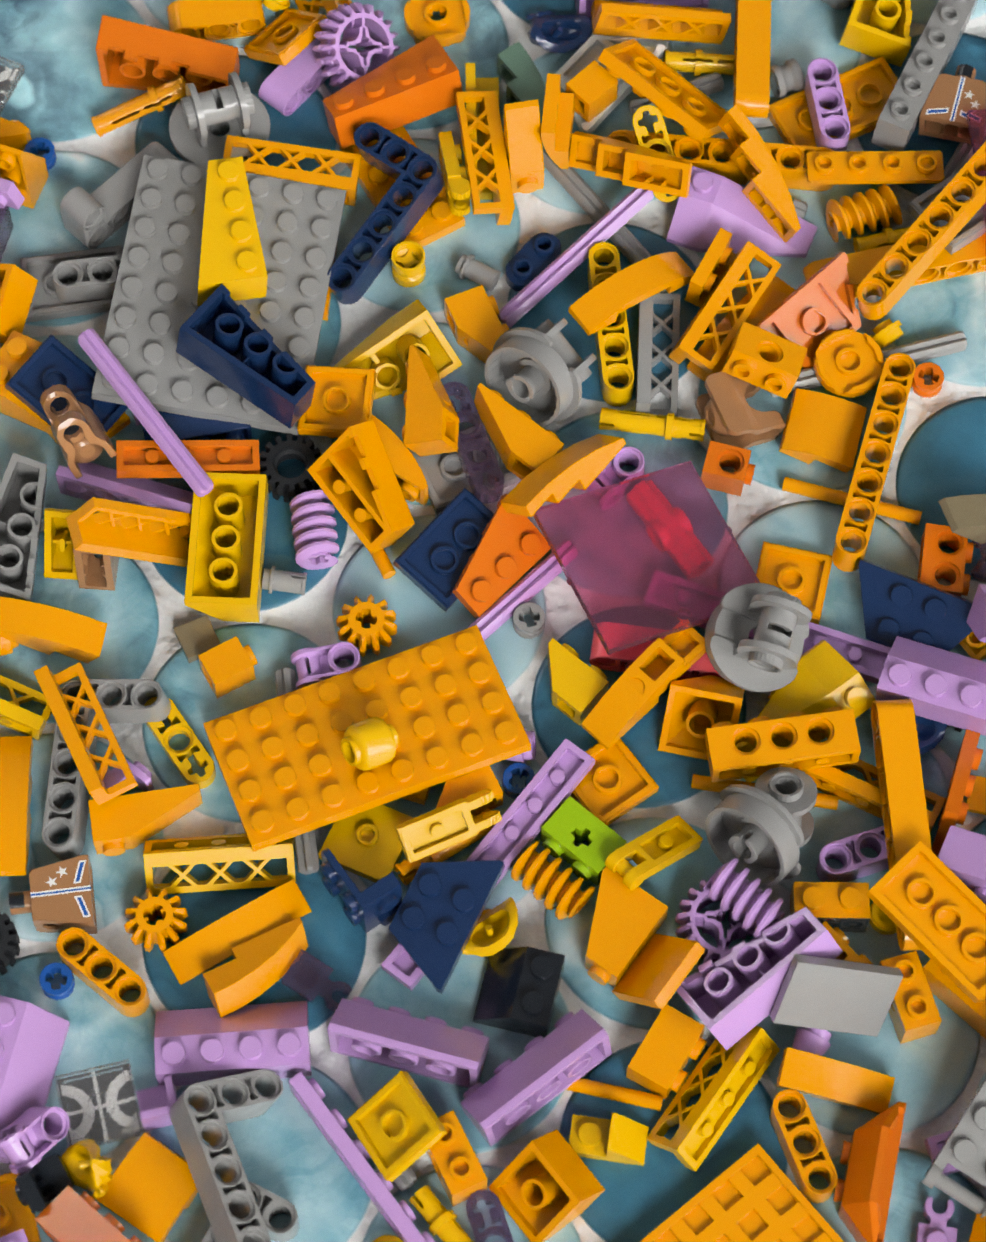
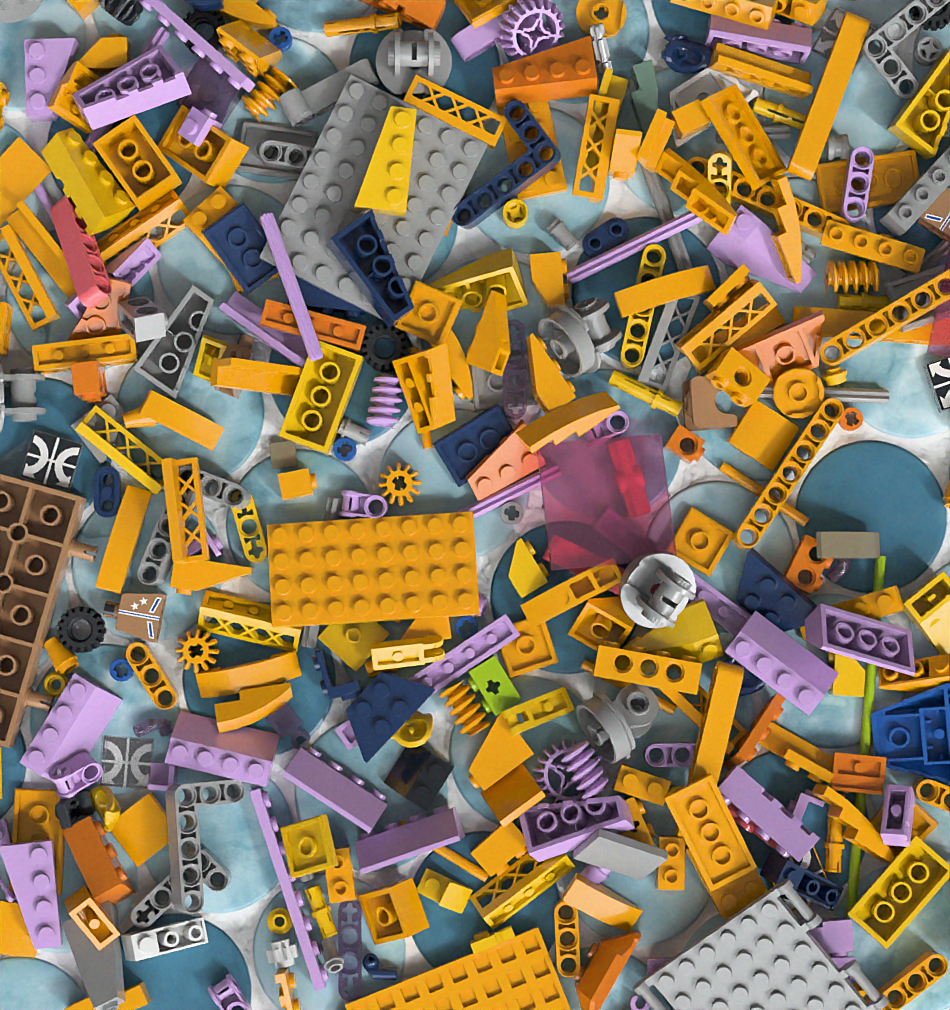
camera: 15 degrees right, 20 degrees up
(40, 216) = (267, 93): none -> light orange piece
(75, 429) = (242, 284): medium nougat piece -> none
(125, 1038) = (153, 724): none -> clear purple arm
(289, 610) = (339, 444): none -> blue bush
(369, 743) = (370, 584): yellow head -> none
(449, 43) = (600, 47): none -> light grey axle
(455, 177) = (569, 156): yellow hinge -> none
(689, 1185) = (485, 940): none -> yellow plate

